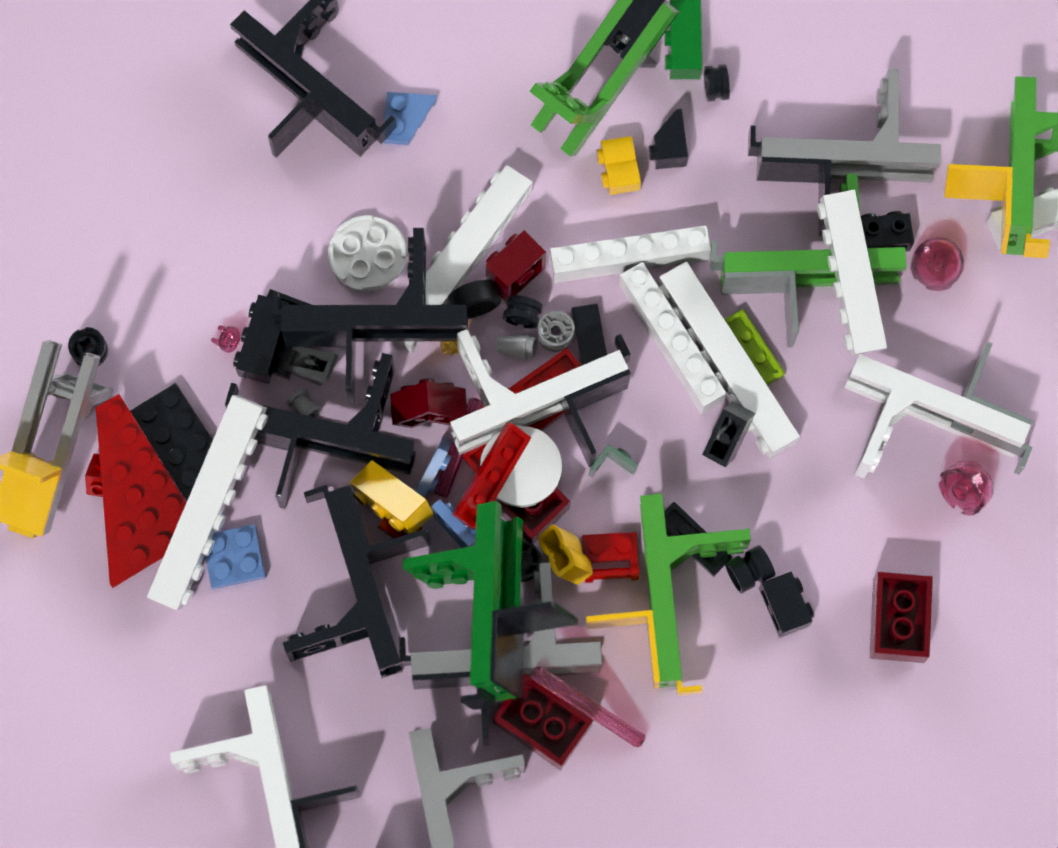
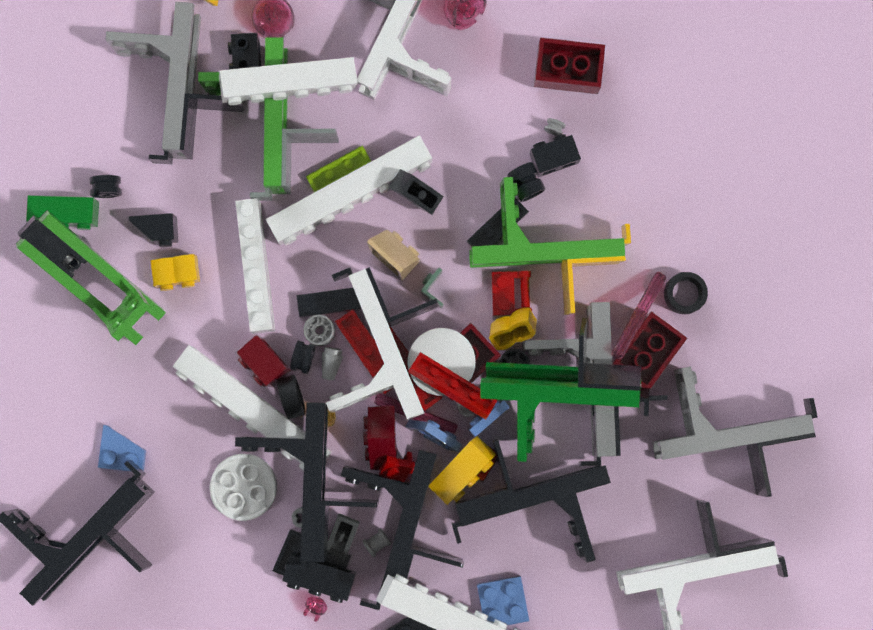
camera: 85 degrees left, 10 degrees up
(392, 421) = (397, 468): none -> red bracket
(634, 756) = (685, 276): none -> black tyre
(651, 409) = (393, 253): none -> tan slope
(672, 338) = (329, 235): white brick -> none
(822, 604) = (554, 127): none -> light grey bush

